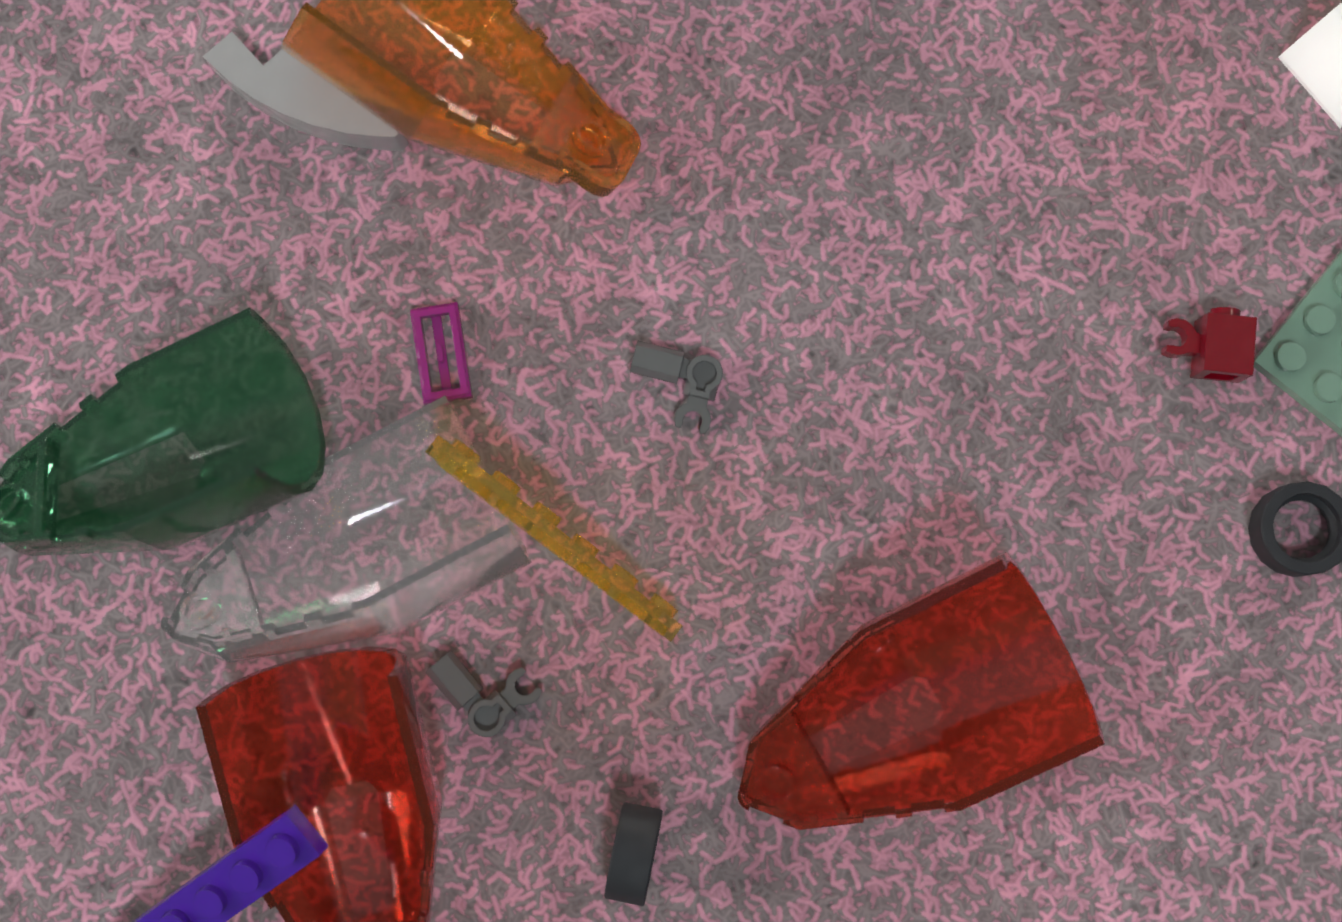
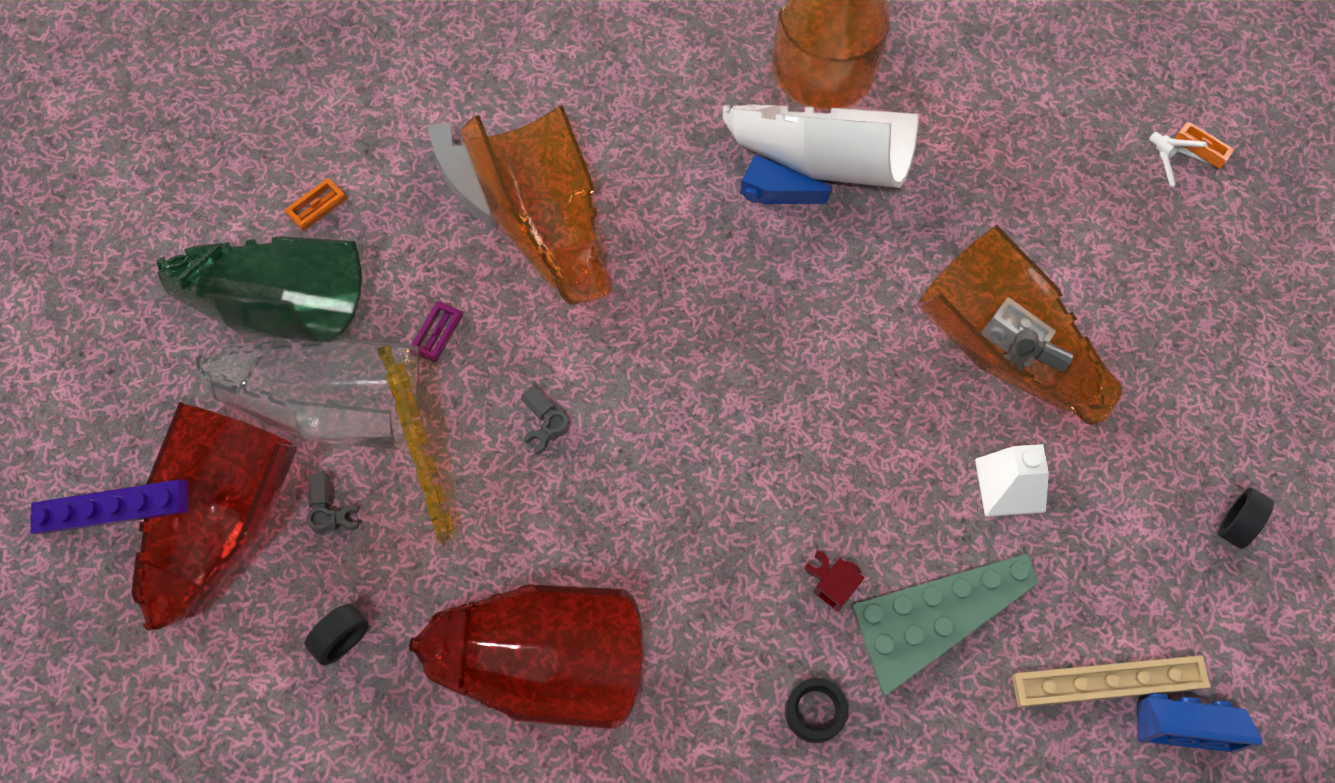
camera: 30 degrees right, 15 degrees down
(143, 284) = (318, 207): none -> orange tile

